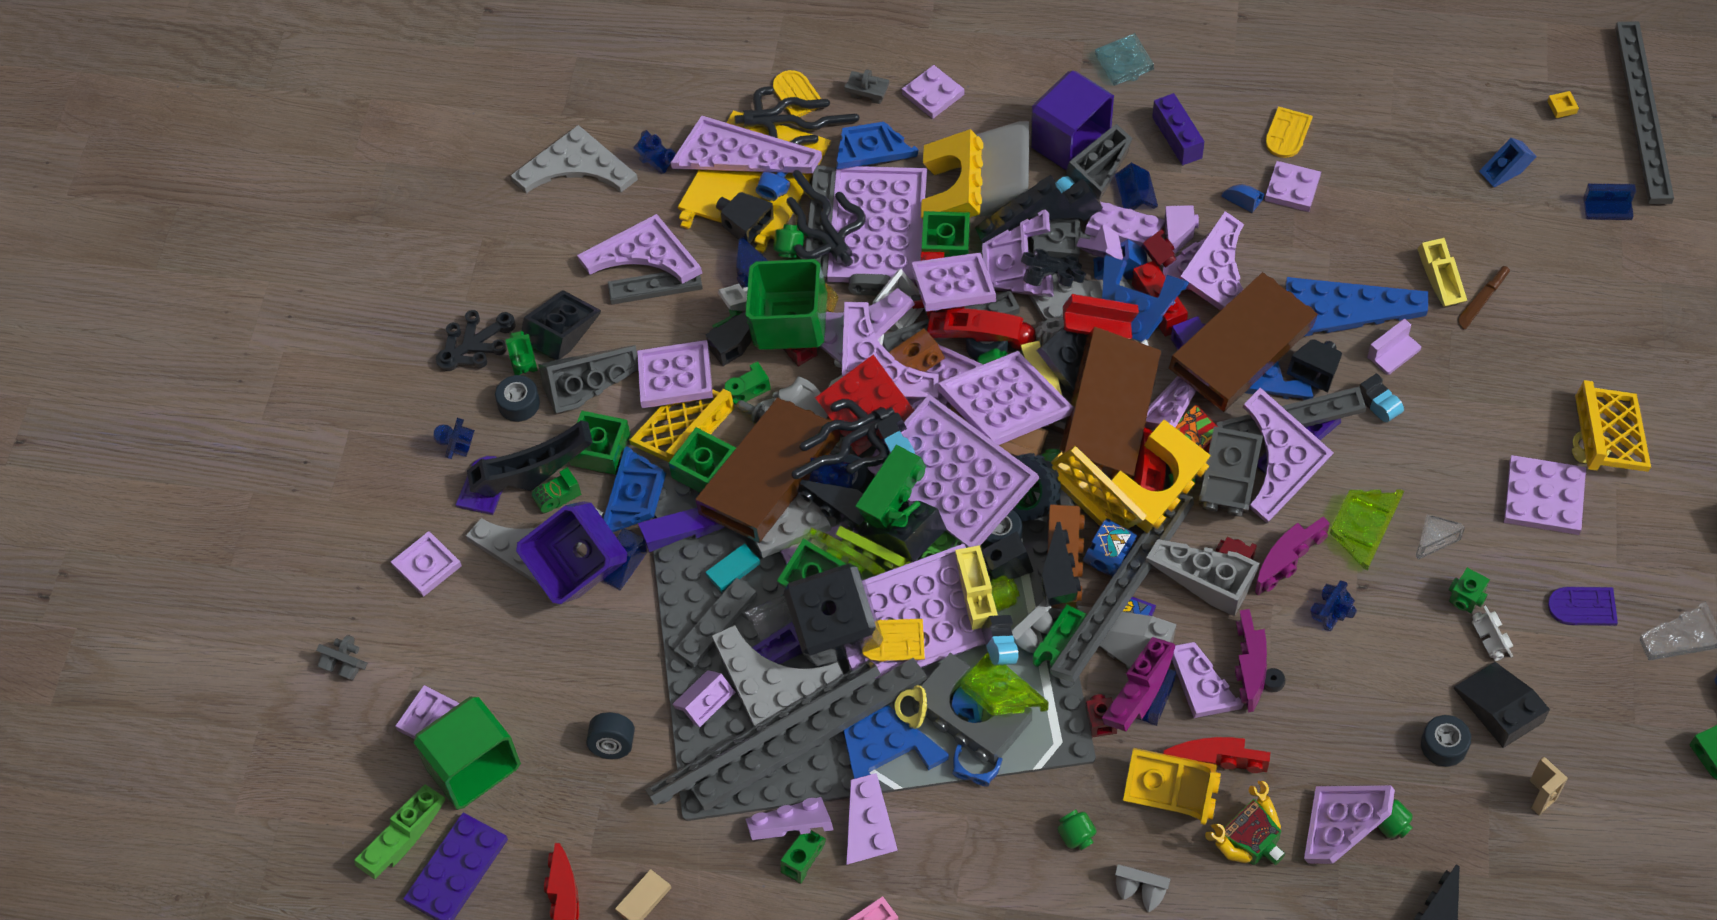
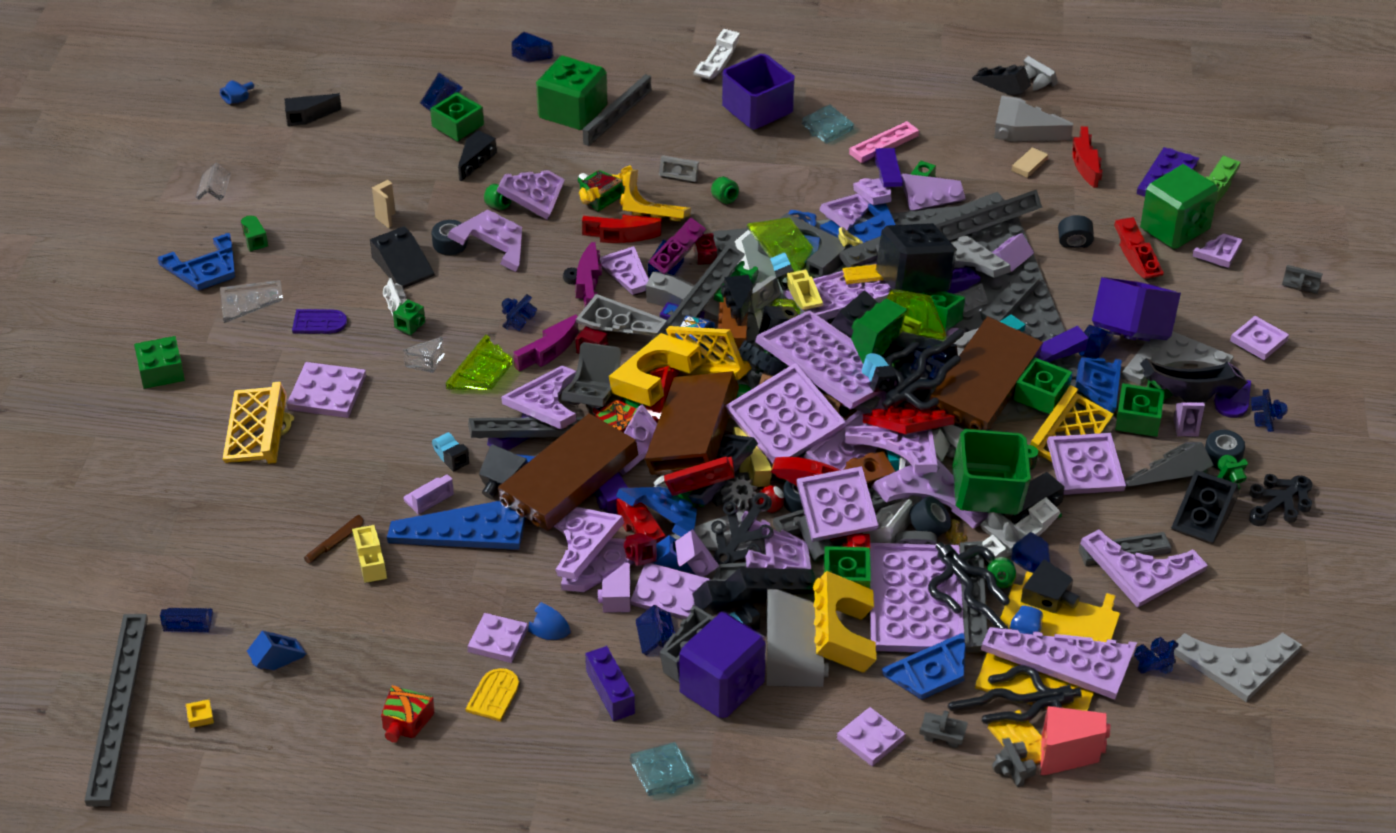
camera: 175 degrees right, 15 degrees down
(535, 707) = (1136, 250): none -> red slope
(544, 424) = (1188, 418): none -> lavender slope
(752, 64) = (1072, 739): none -> coral slope
(810, 61) = (1010, 762): none -> dark grey hips
(847, 856) = (888, 167): none -> dark purple slope
(852, 291) = (930, 516): none -> black wheel
(901, 518) = (871, 299): green hand -> none
(914, 773) = (845, 210): none -> lavender wing
(1367, 103) = (405, 713): none -> red torso
(1386, 745) = (494, 231): none -> lavender wing

